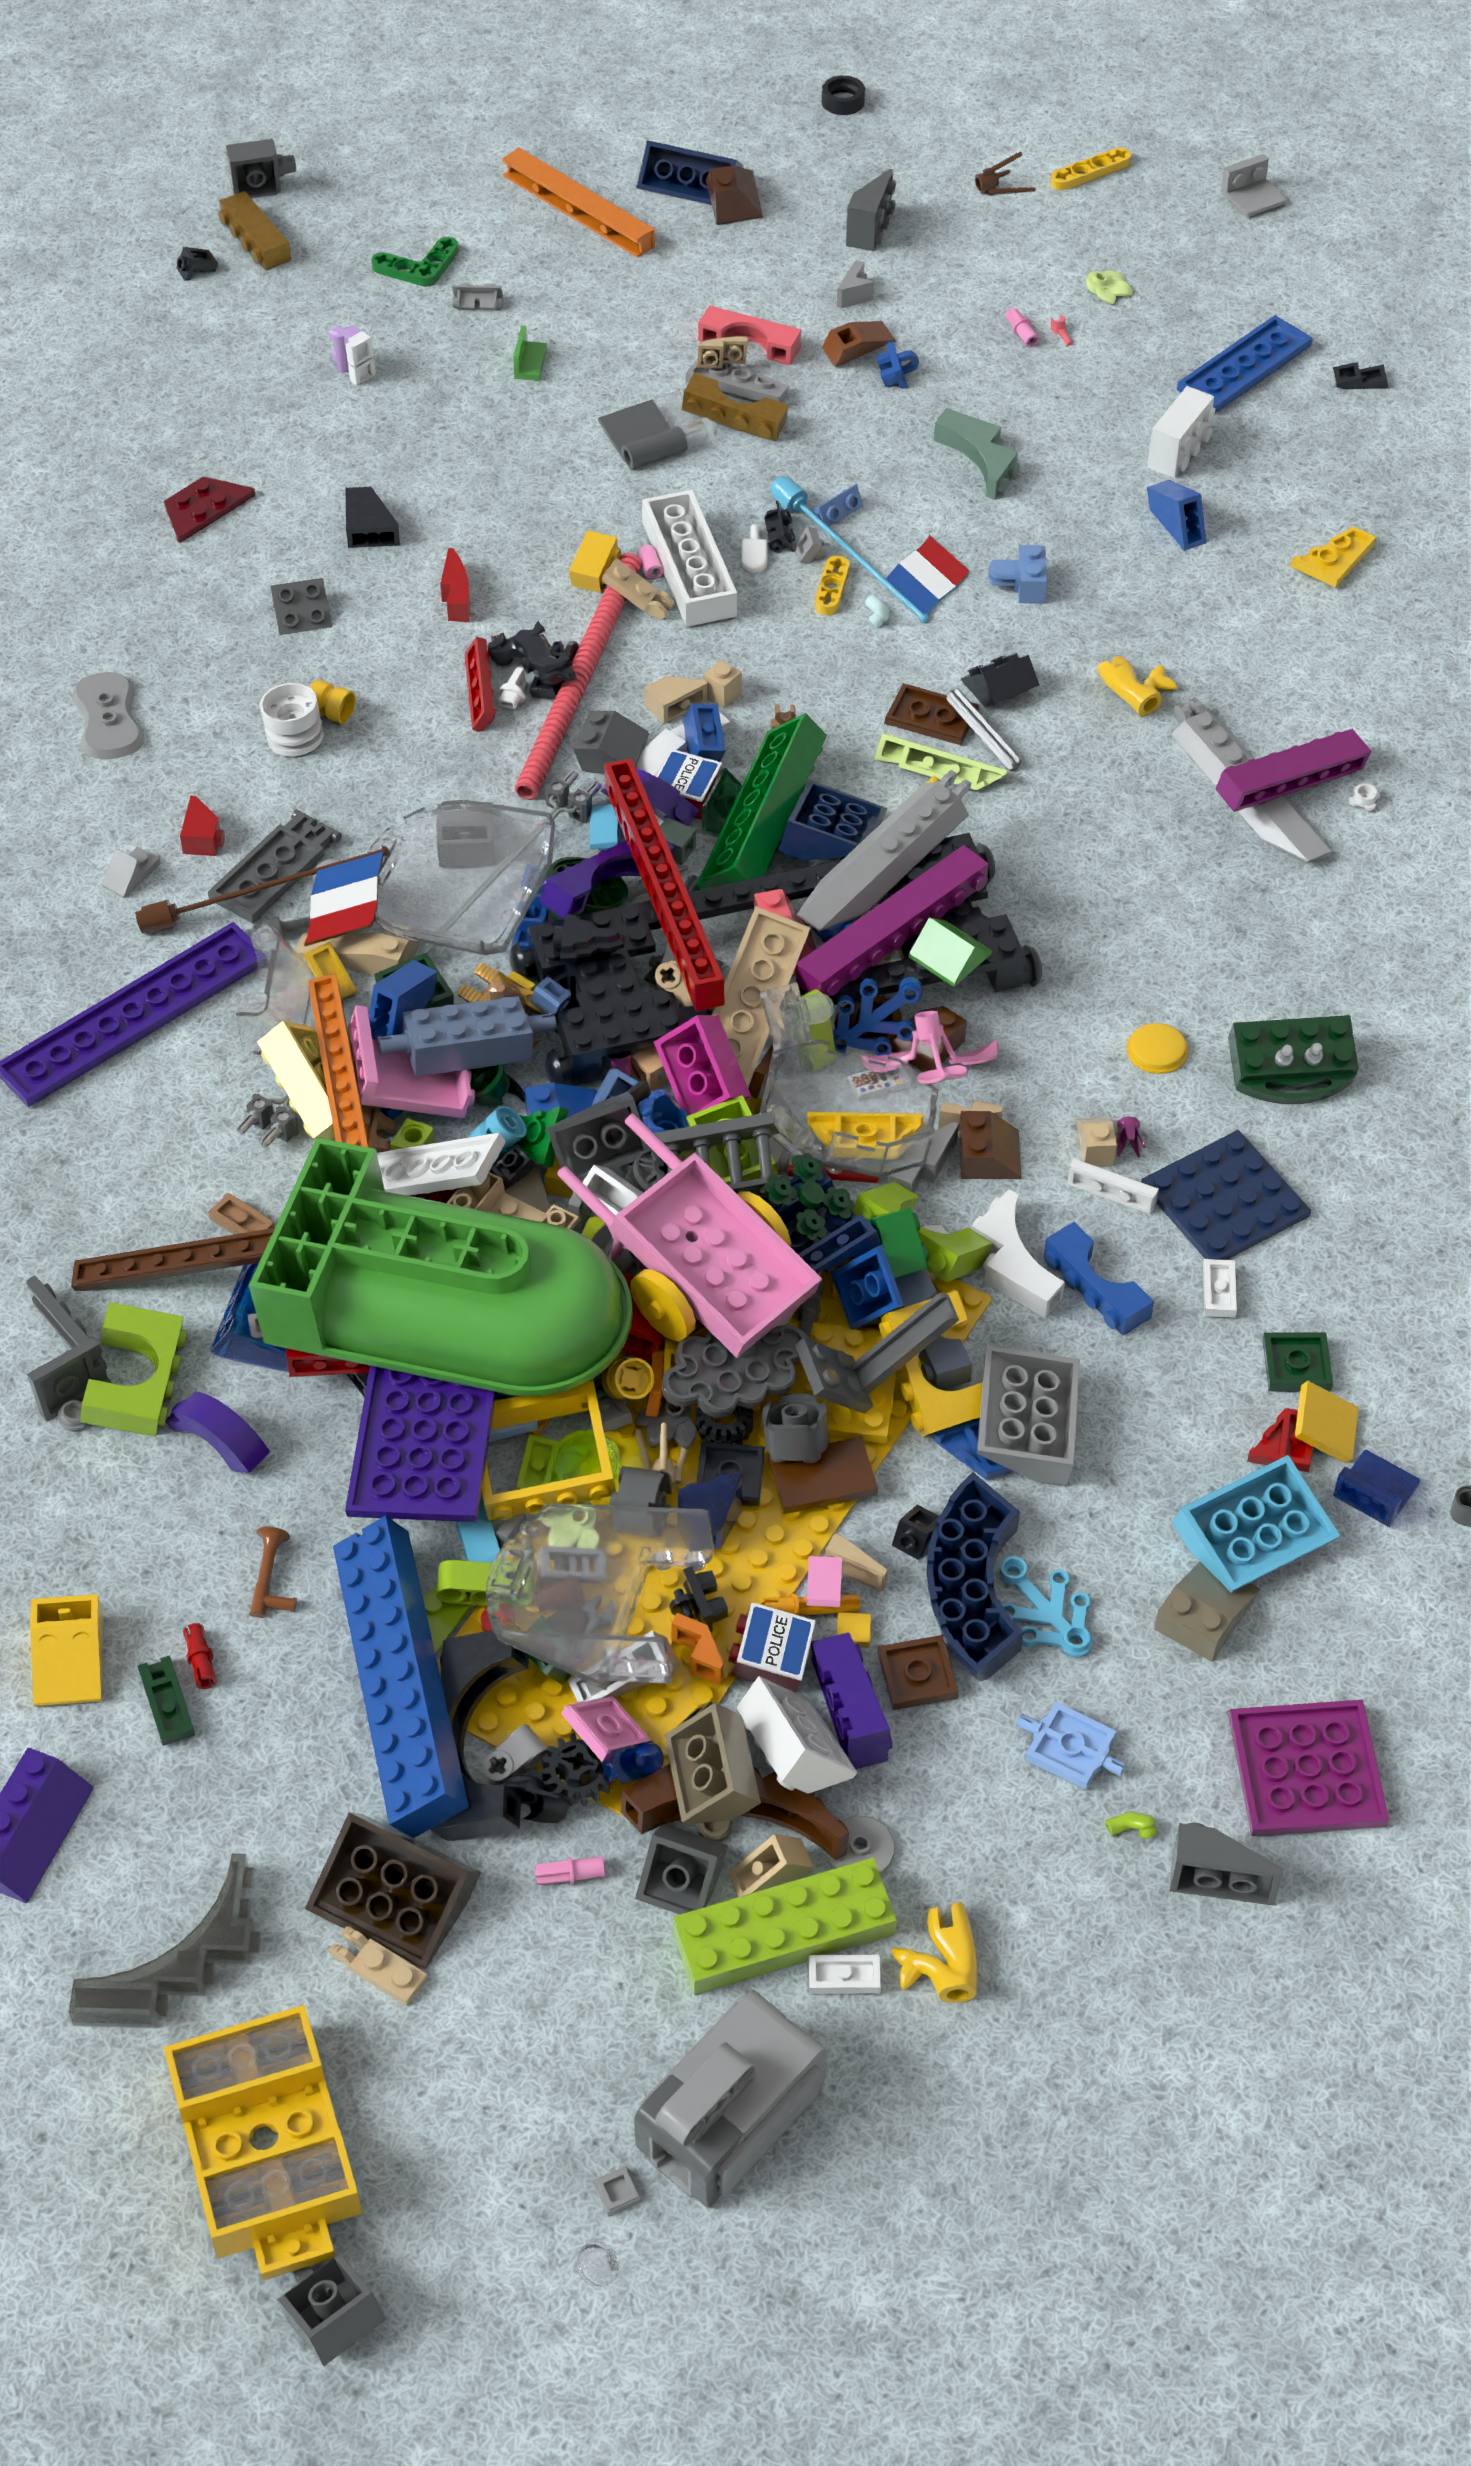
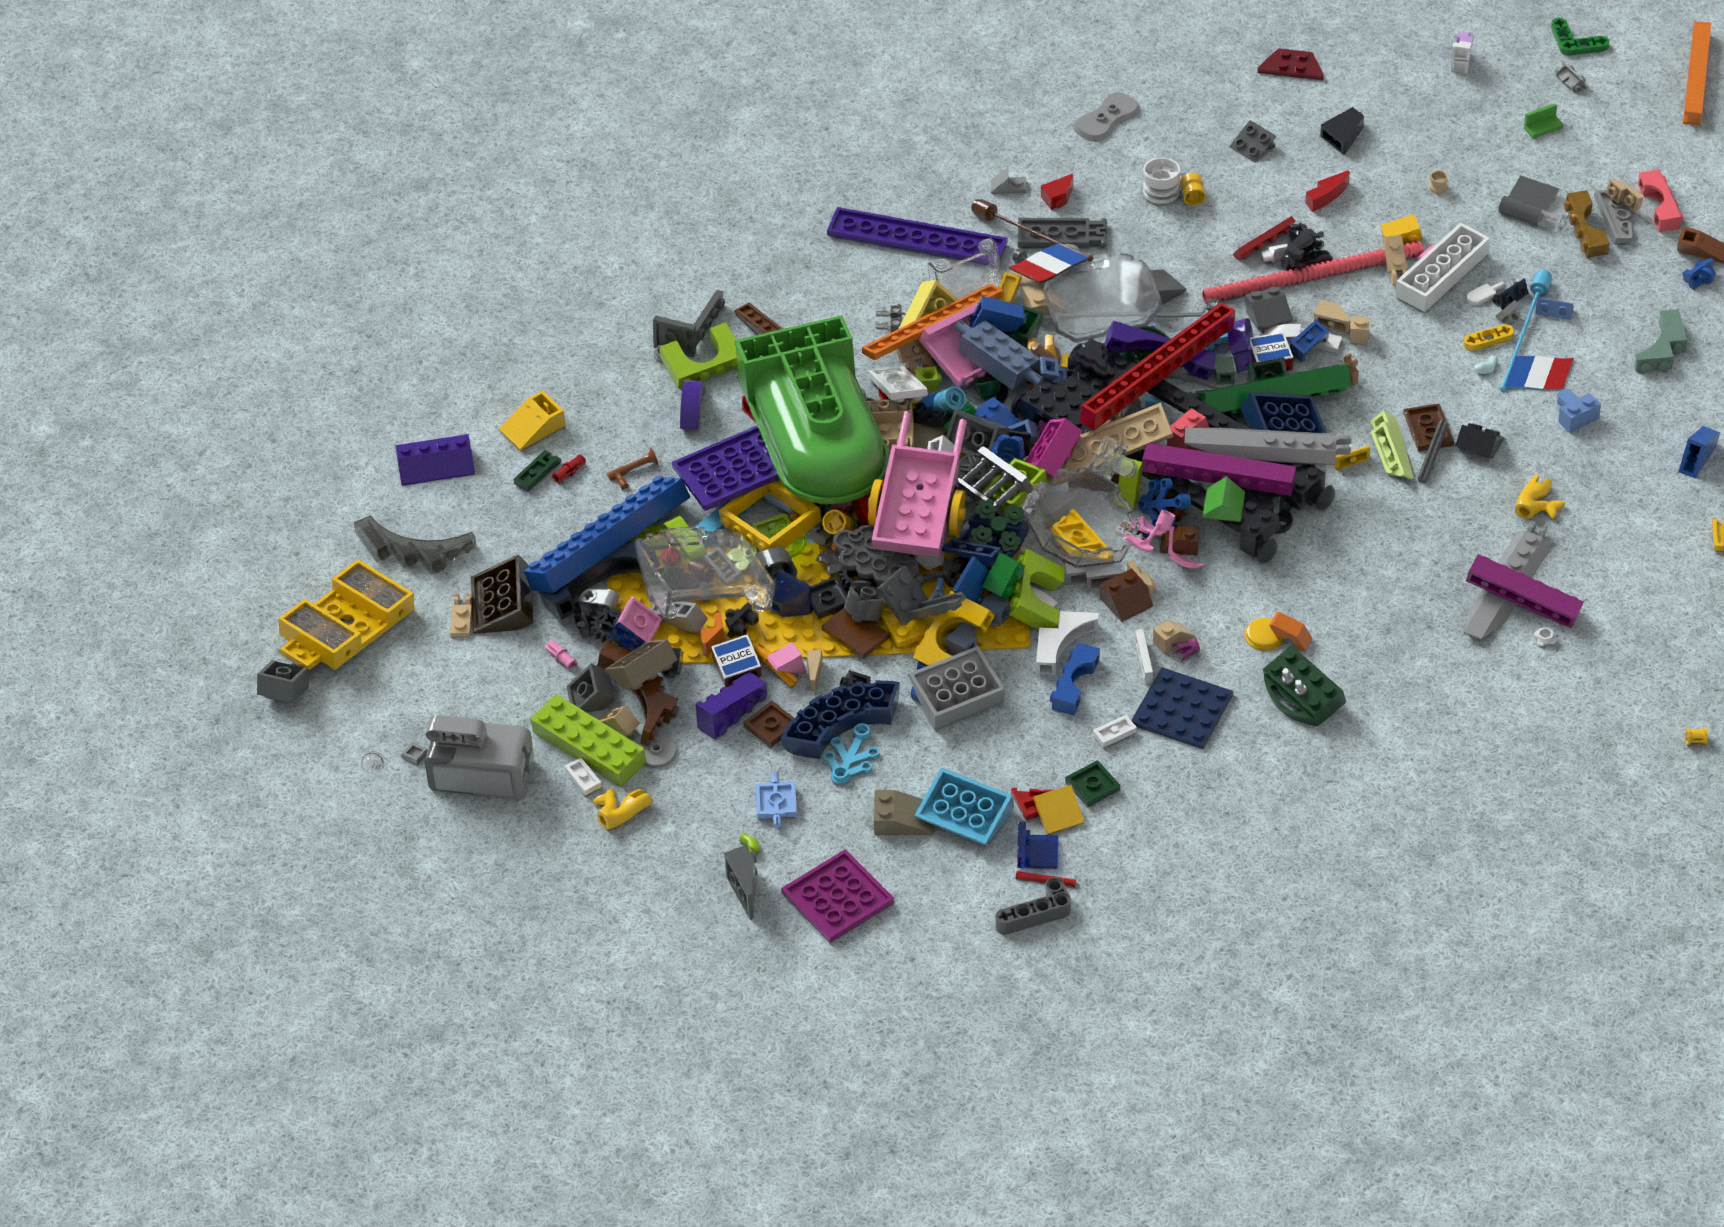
camera: 60 degrees right, 5 degrees down
(538, 488) = (1438, 182): none -> tan wheel
(662, 1464) = (804, 569): tan plant -> none
(715, 1831) = (625, 695): dark tan tile -> none
(793, 1738) = (683, 690): white slope -> none
(835, 1335) = (938, 591): none -> medium blue bar
(857, 1625) = (778, 690): yellow tile -> none
(1185, 1016) = (1287, 627): none -> orange slope
(1430, 1506) = (1043, 878): none -> red bar

